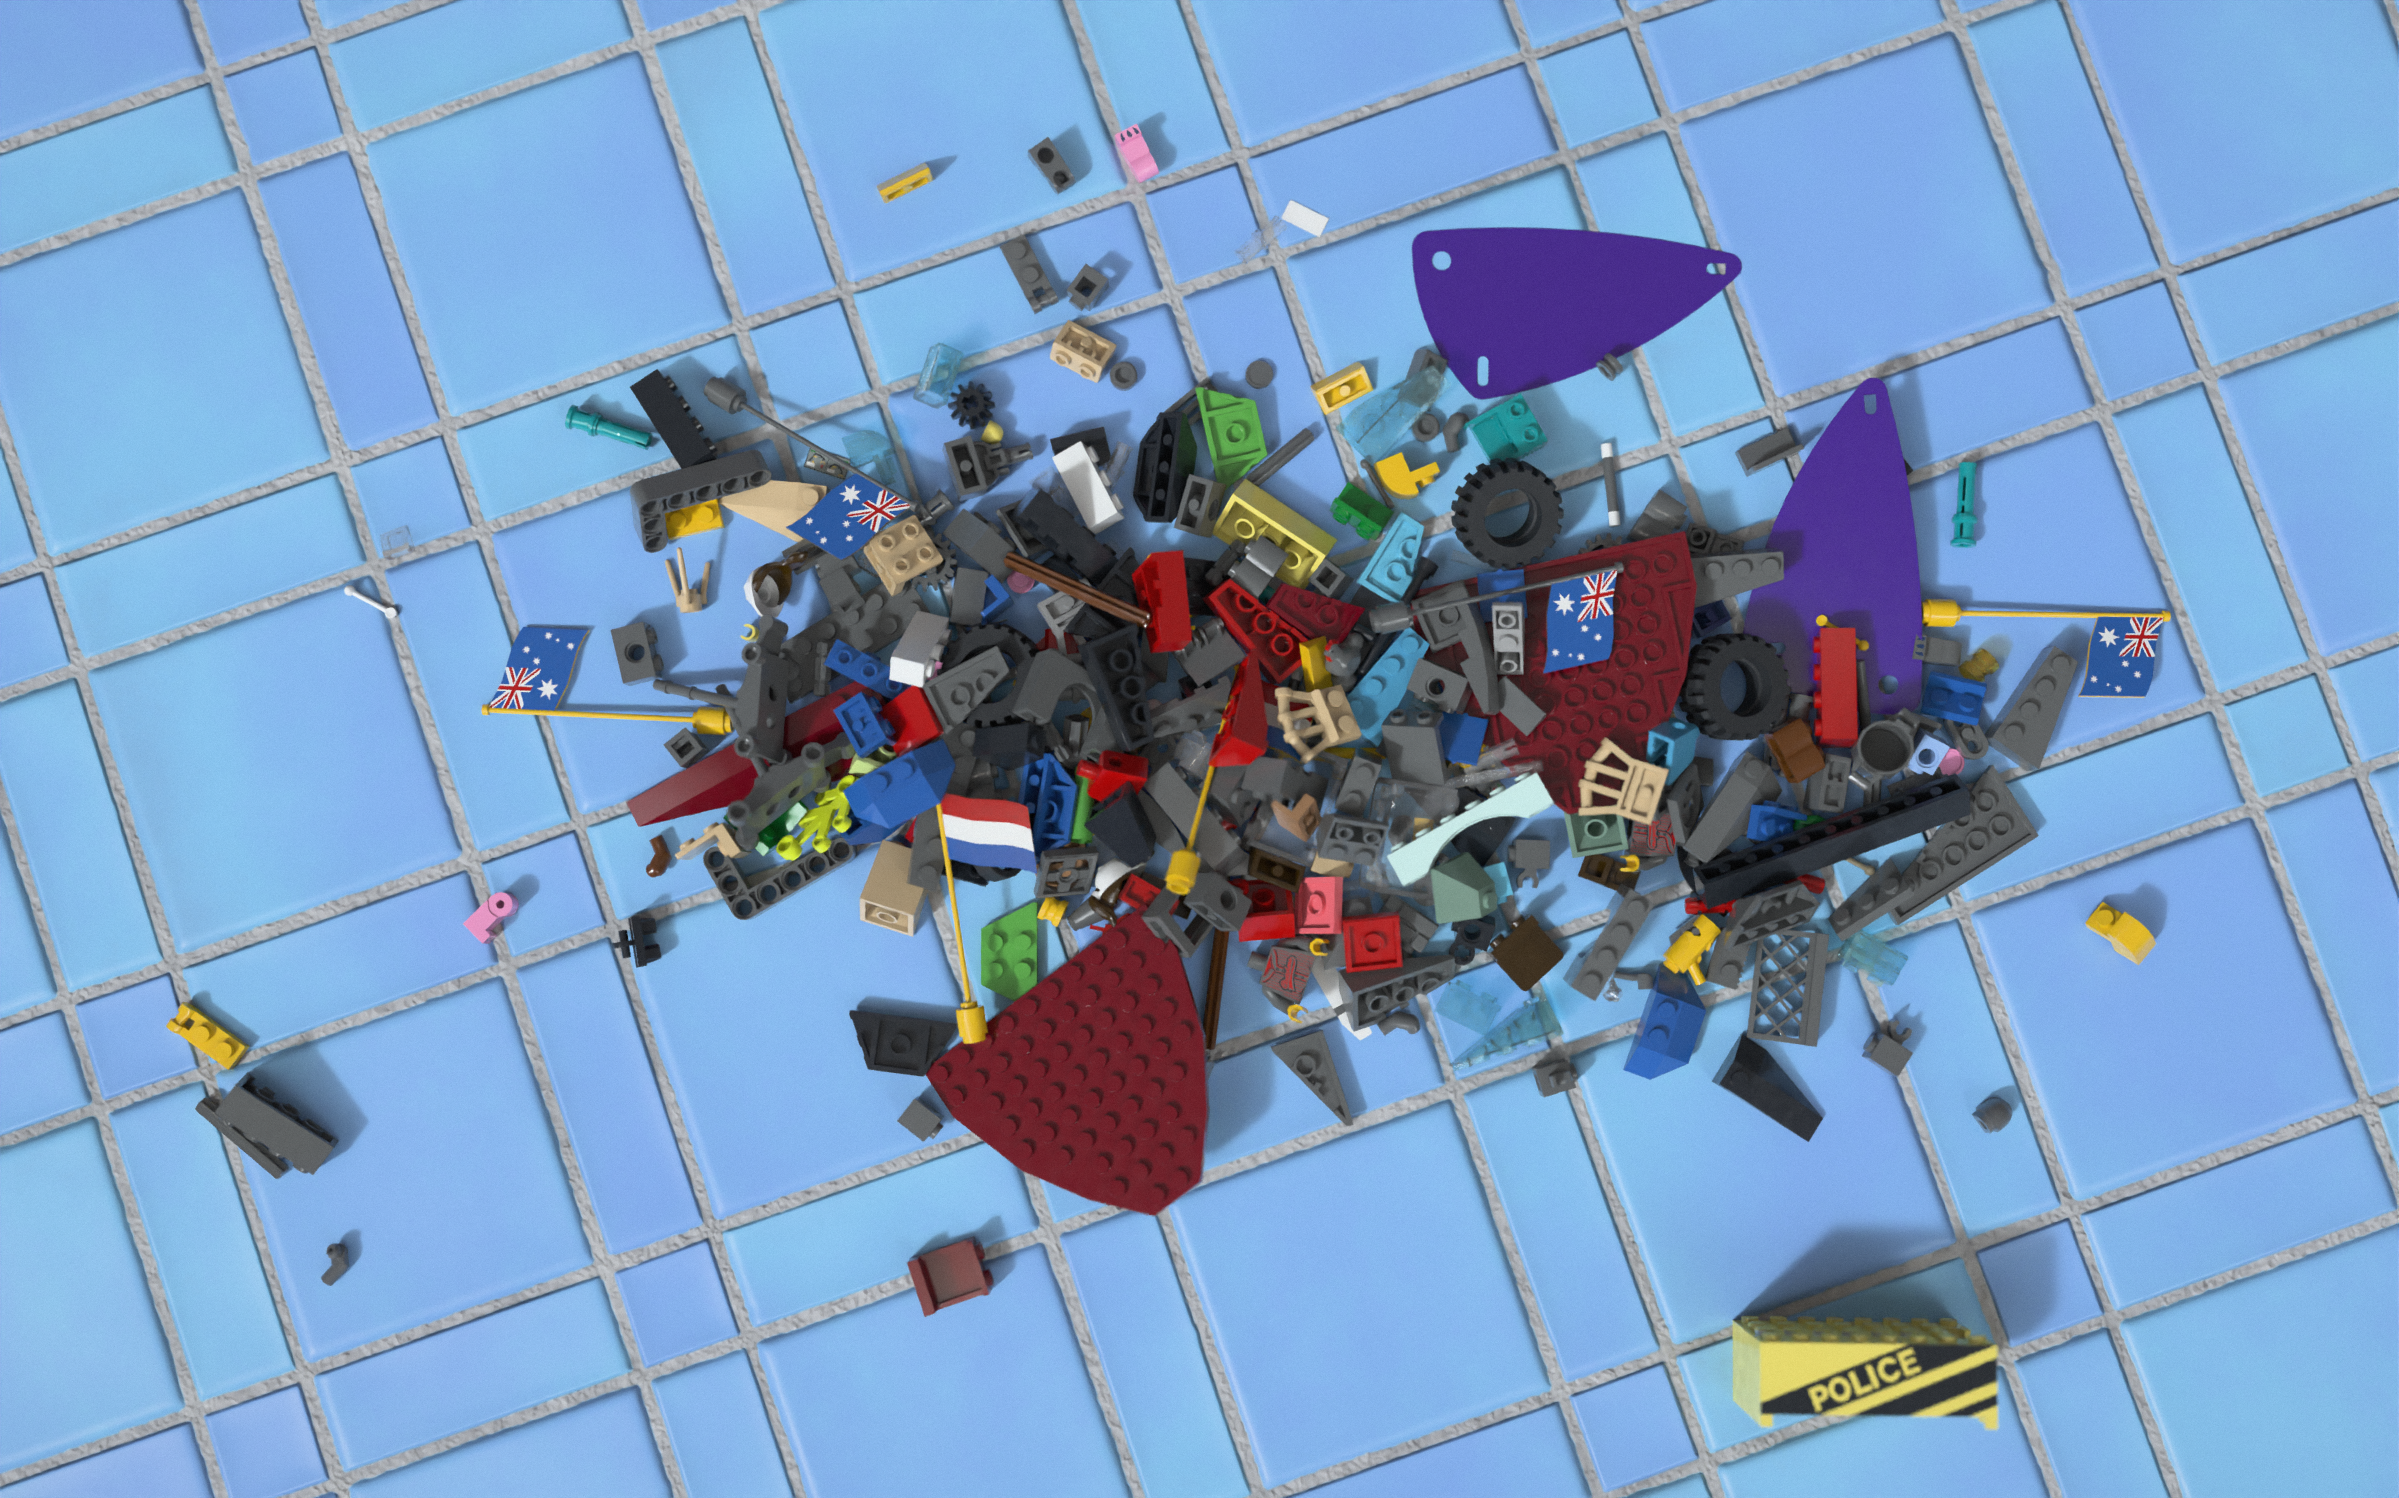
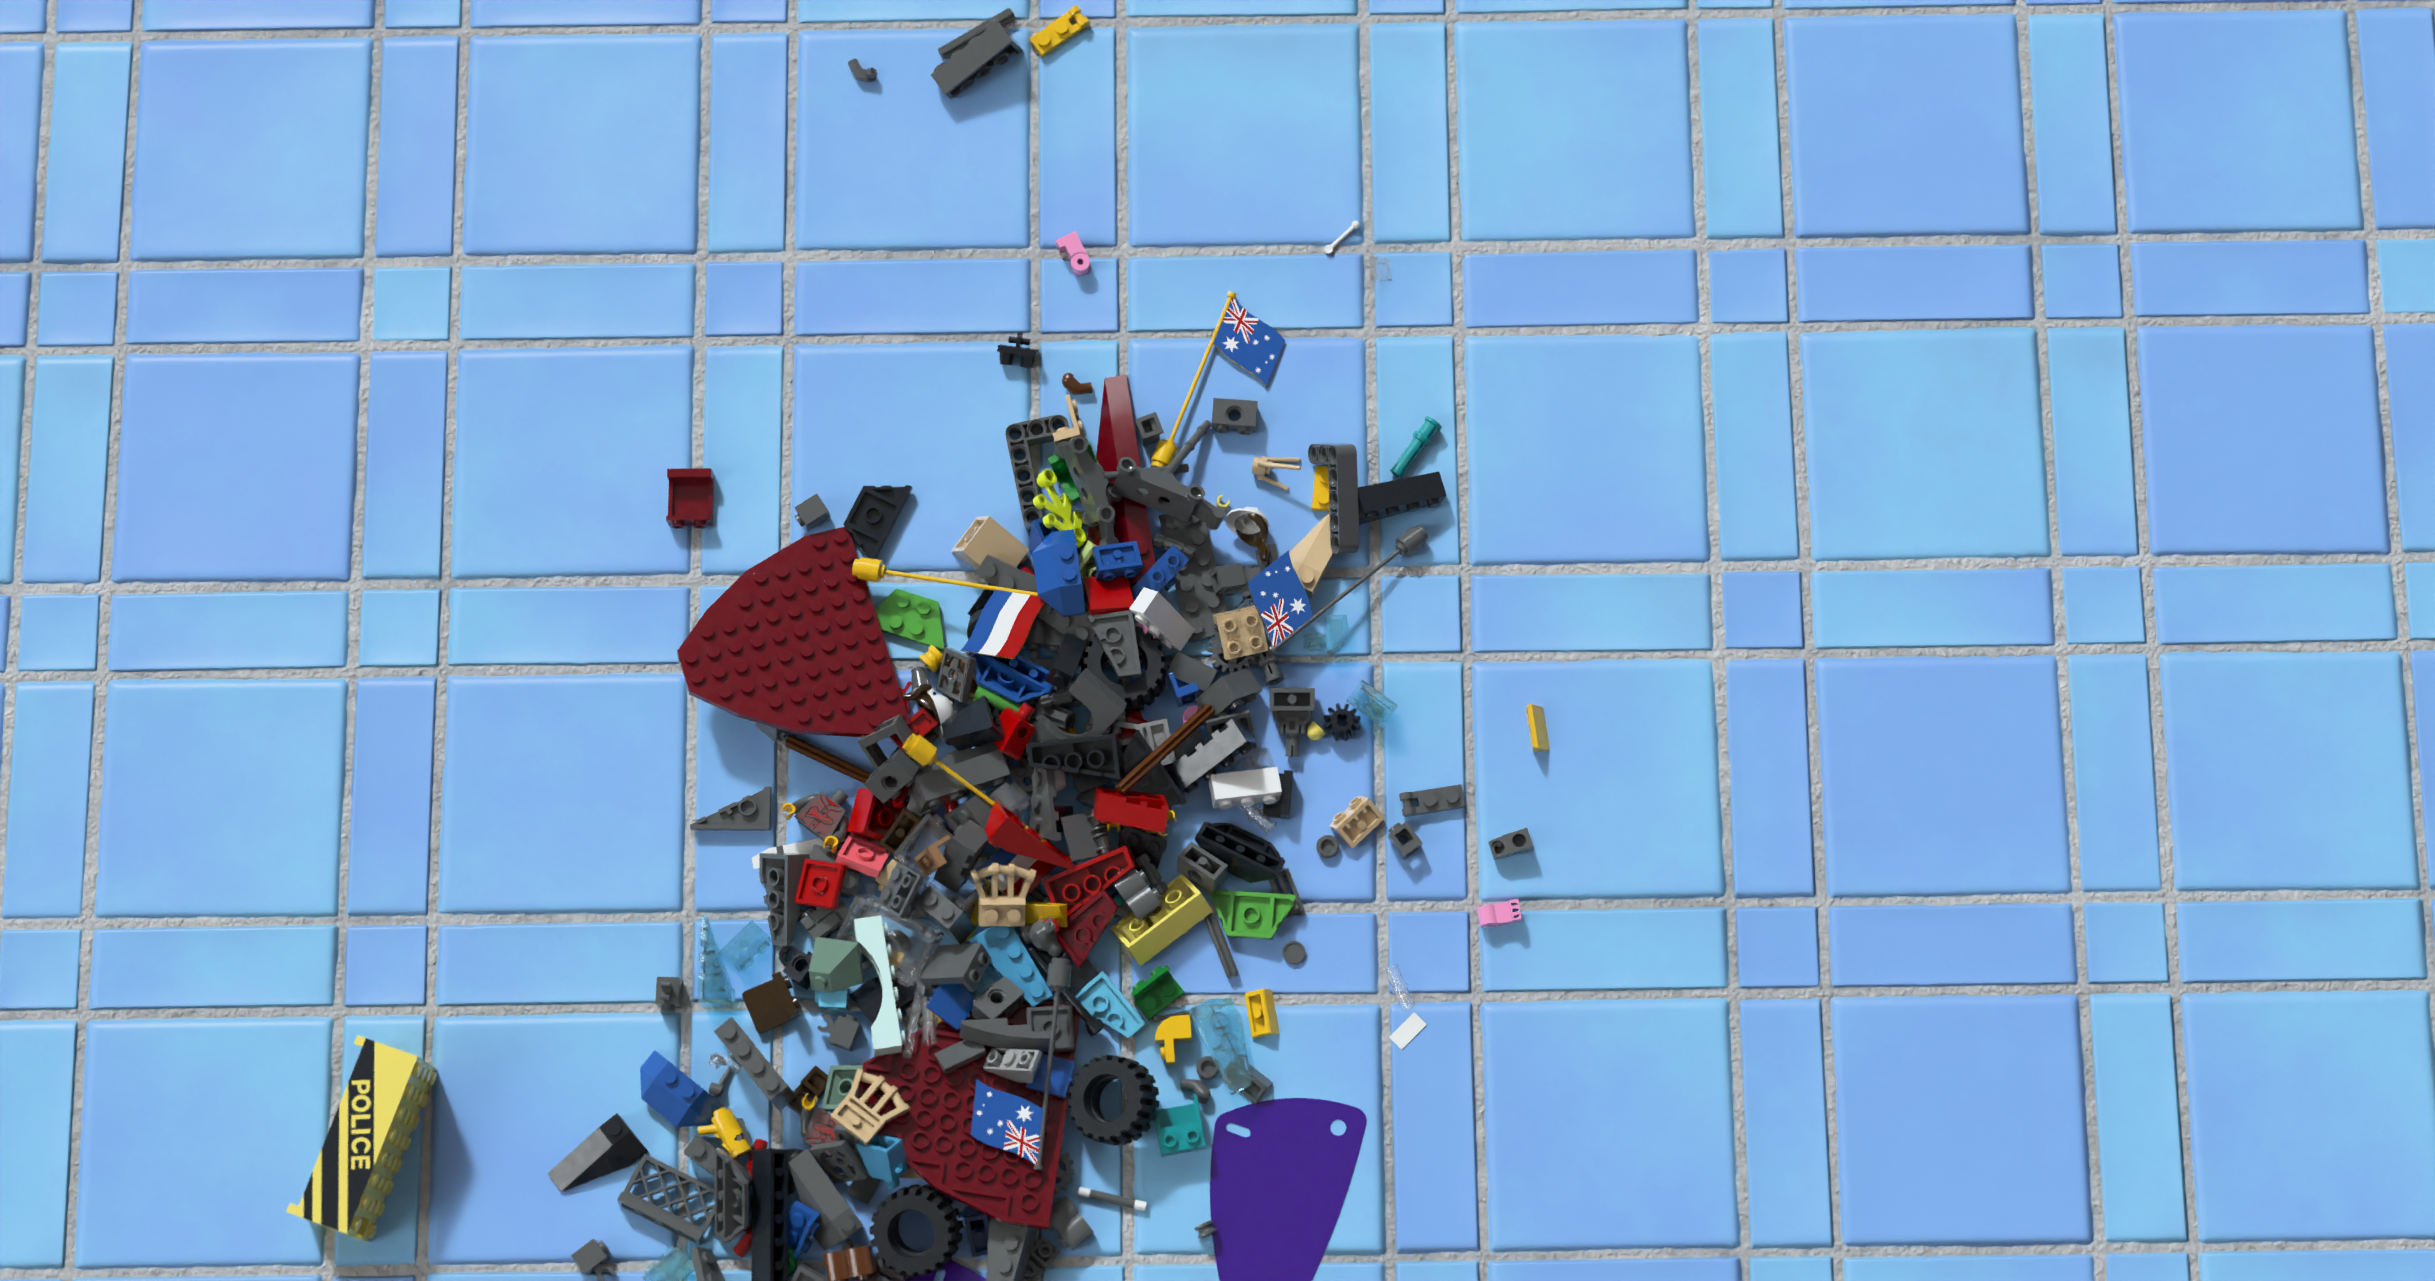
camera: 110 degrees right, 10 degrees down
(824, 465) = (1335, 608): light grey sticker -> none
(1330, 580) = (1110, 949): dark grey brick -> none
(1400, 1020) = (754, 892): dark grey arm -> none

